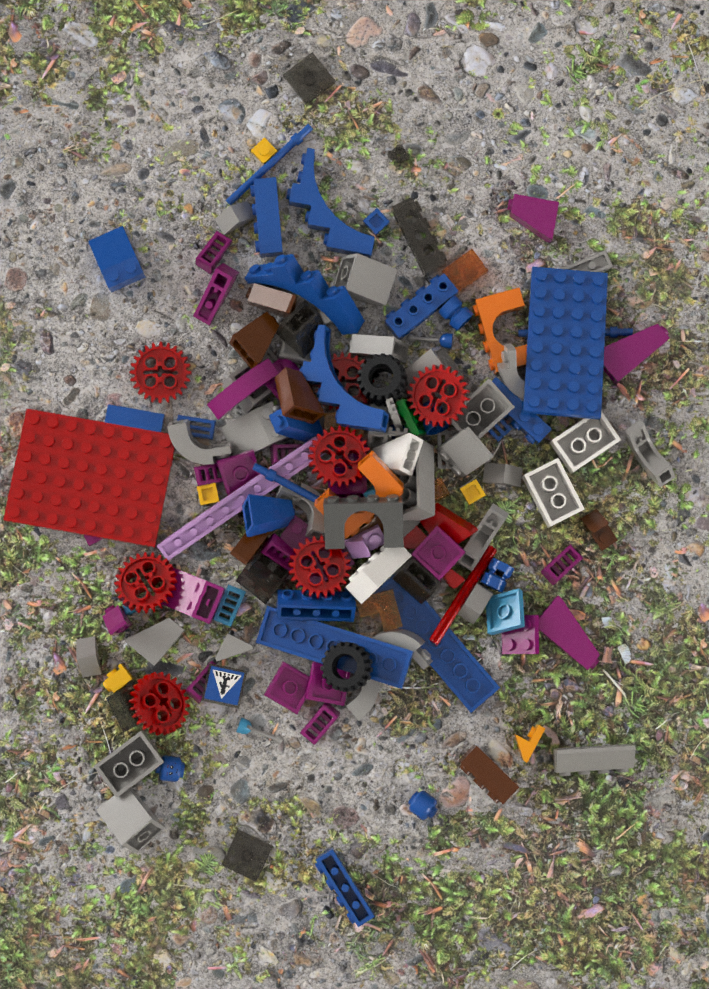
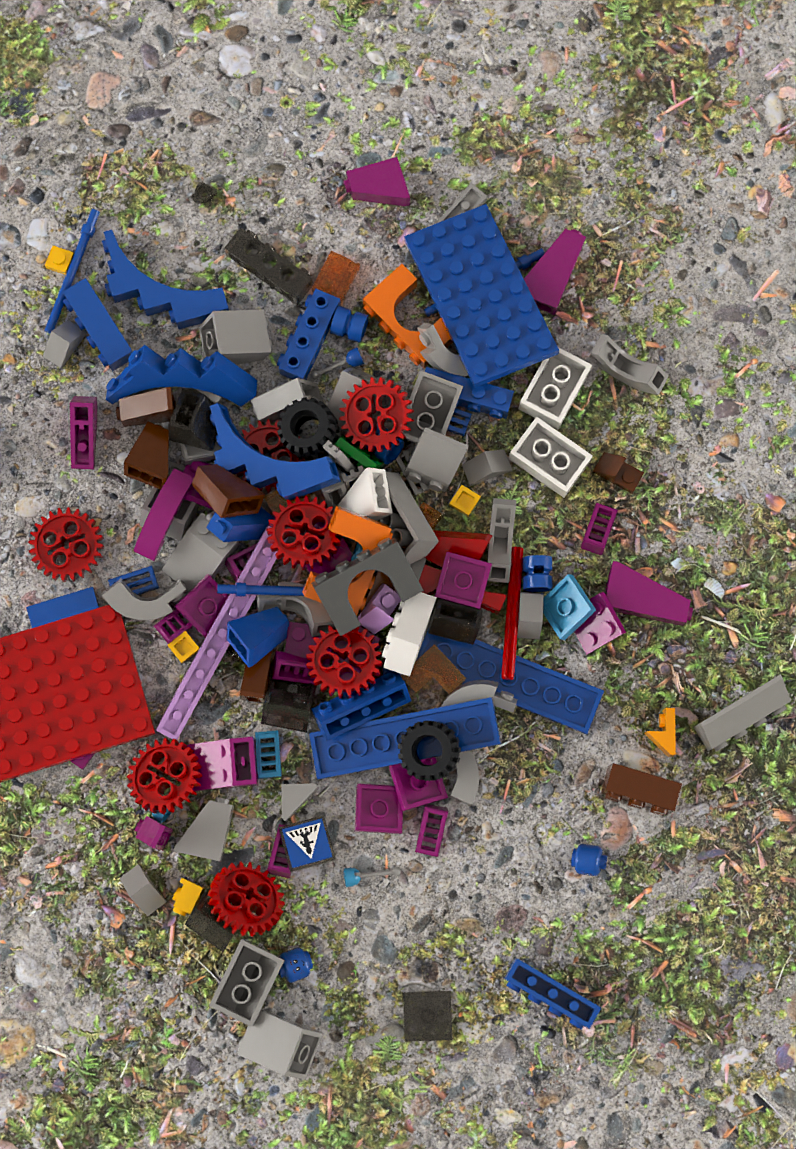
camera: 25 degrees left, 5 degrees down
(205, 265) = (58, 405): magenta slope -> none
(309, 78) = (69, 162): clear smoke plate -> none
(376, 221) = (216, 273): blue plate -> none

